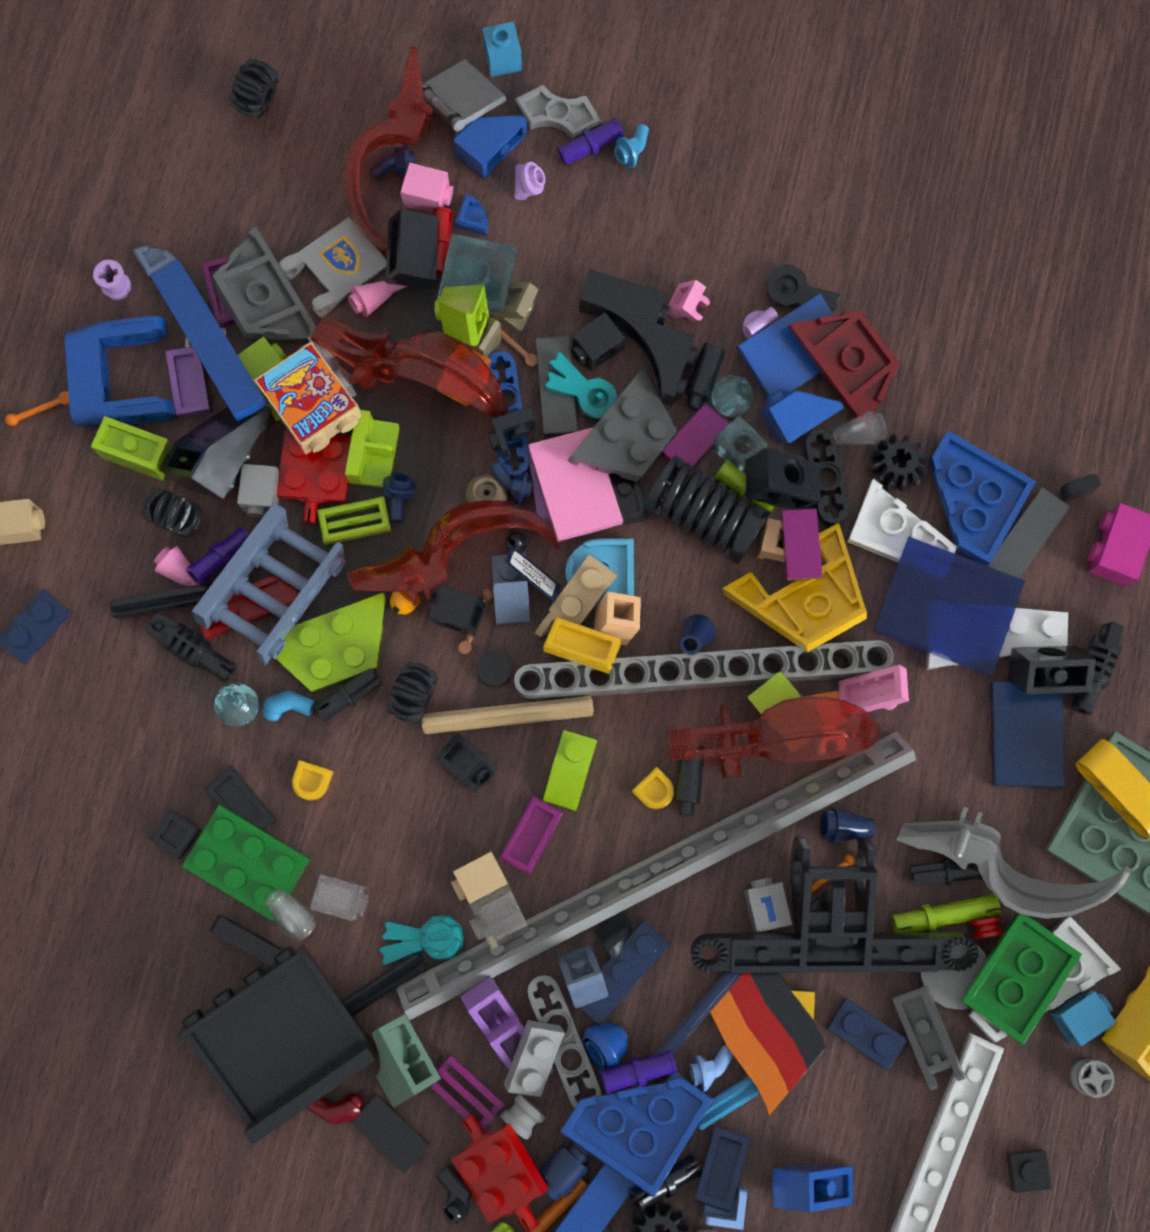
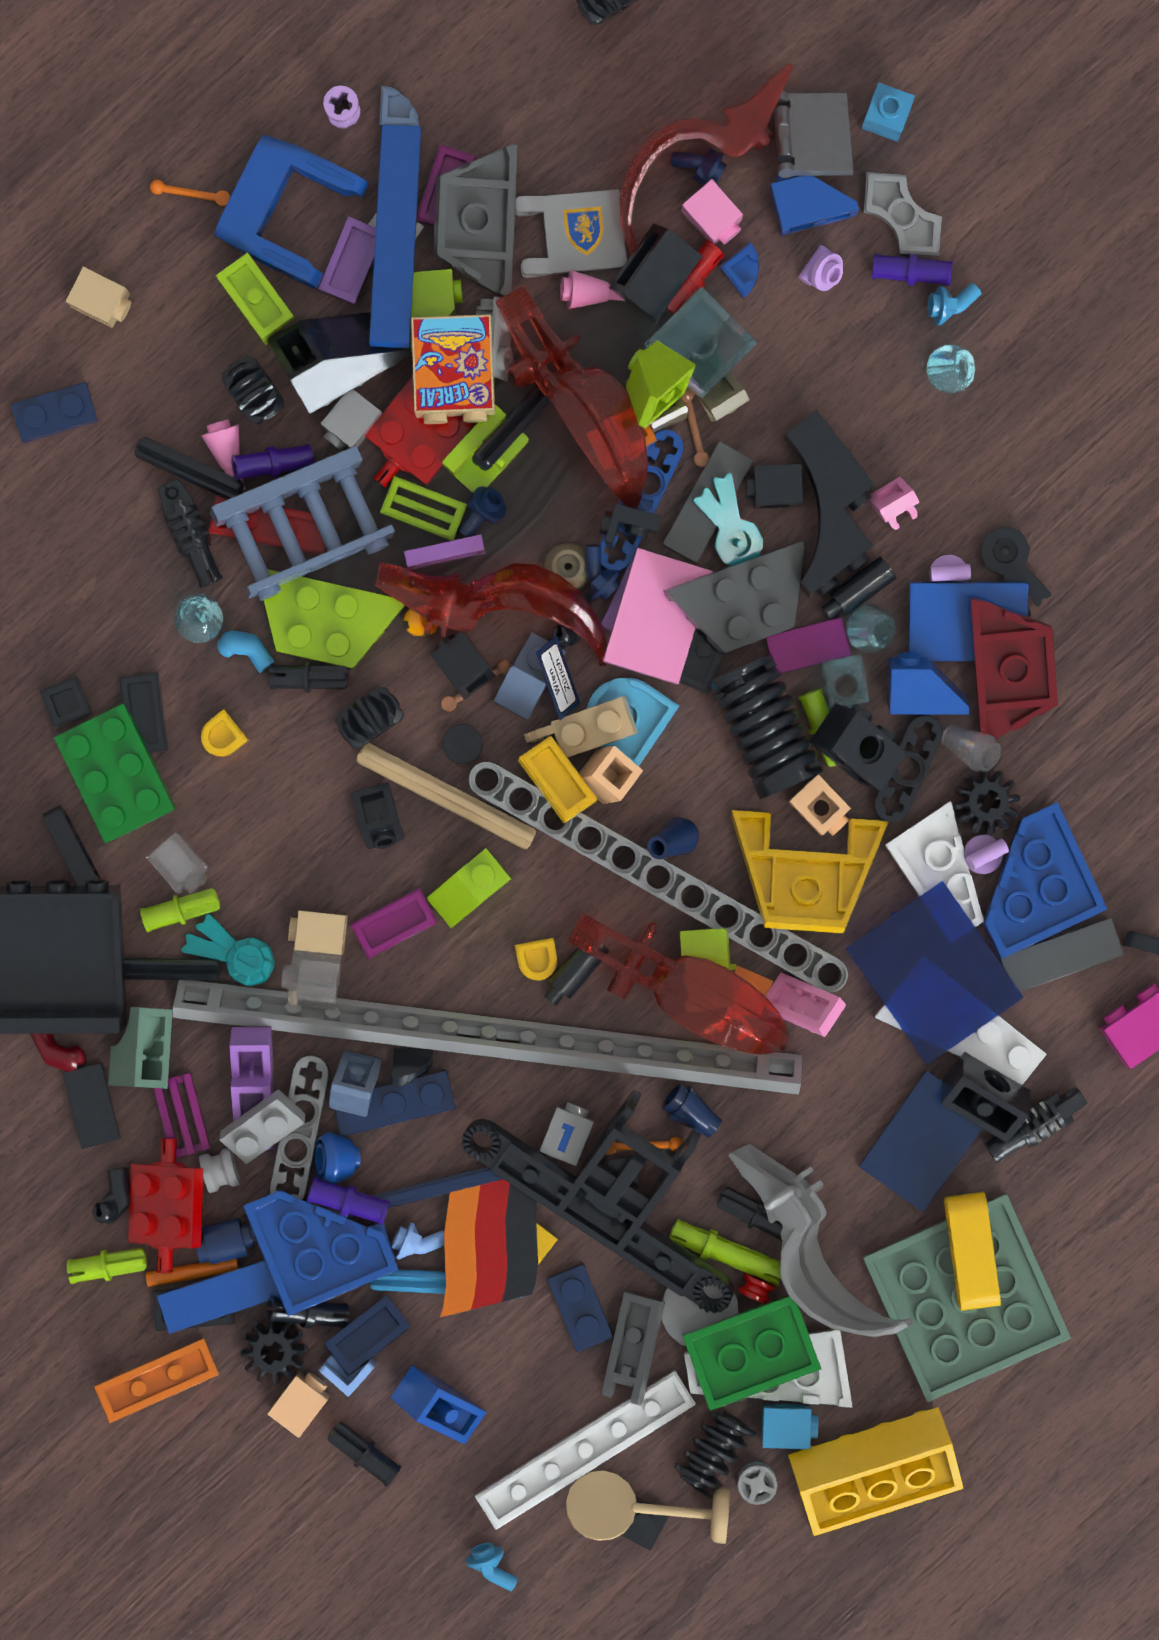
camera: 40 degrees right, 10 degrees up
(292, 916) = (125, 850): clear cone -> none
(362, 933) = (180, 909): none -> lime axle
(380, 419) = (510, 428): none -> black axle
(390, 538) = (444, 552): none -> medium lavender tile
(663, 187) = (951, 368): none -> clear light blue piece
(801, 544) = (830, 822): magenta tile -> none
(922, 500) = (984, 853): none -> lavender plate
(994, 1178) = (605, 1506): none -> tan piece
(1045, 1076) = (713, 1451): none -> black piece

